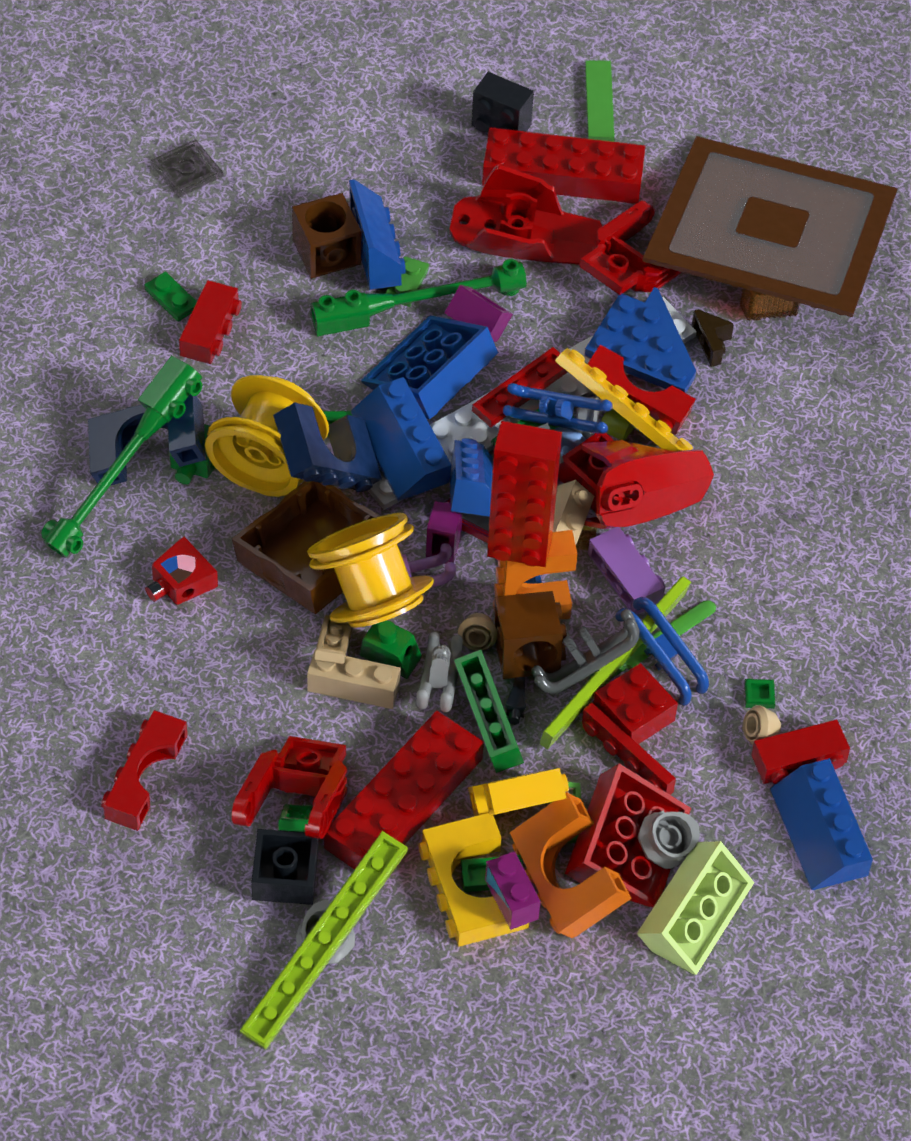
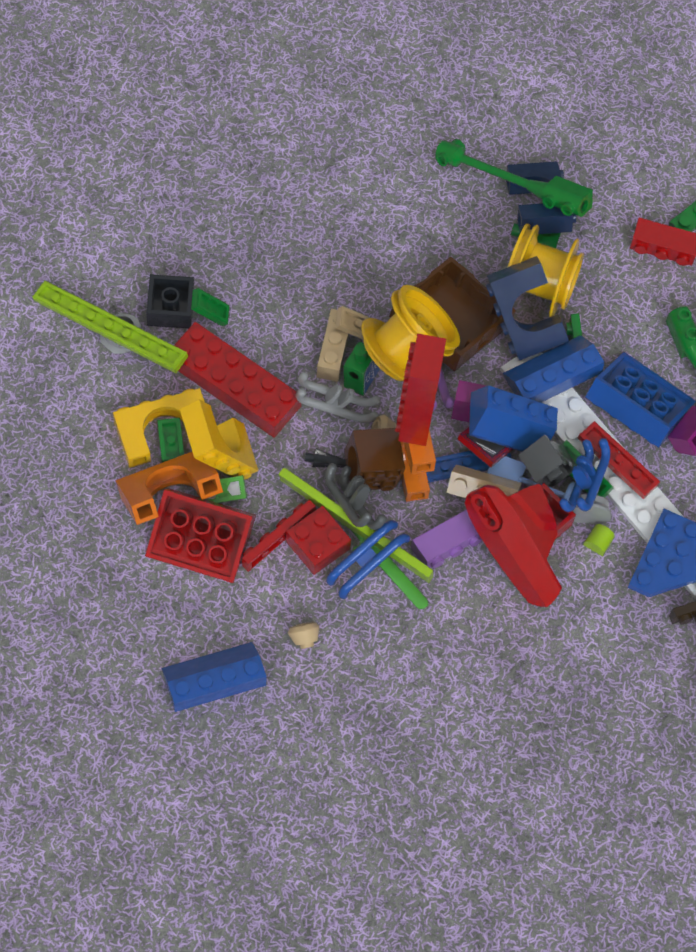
camera: 85 degrees right, 10 degrees up
(159, 740) = (228, 204): red arch -> none
(181, 574) = (425, 230): red torso -> none
(299, 768) = (254, 313): red plate -> none
(488, 711) = (307, 434): green brick -> none
(512, 890) = (140, 441): magenta brick -> none
(634, 413) = (601, 533): yellow plate -> none
(668, 405) = (637, 524): red arch -> none
(668, 837) = (198, 558): light grey hat -> none
(696, 906) = (141, 580): yellowish green slope -> none
(759, 693) = (339, 637): green tile -> none
(786, 752) = (280, 662): red brick -> none

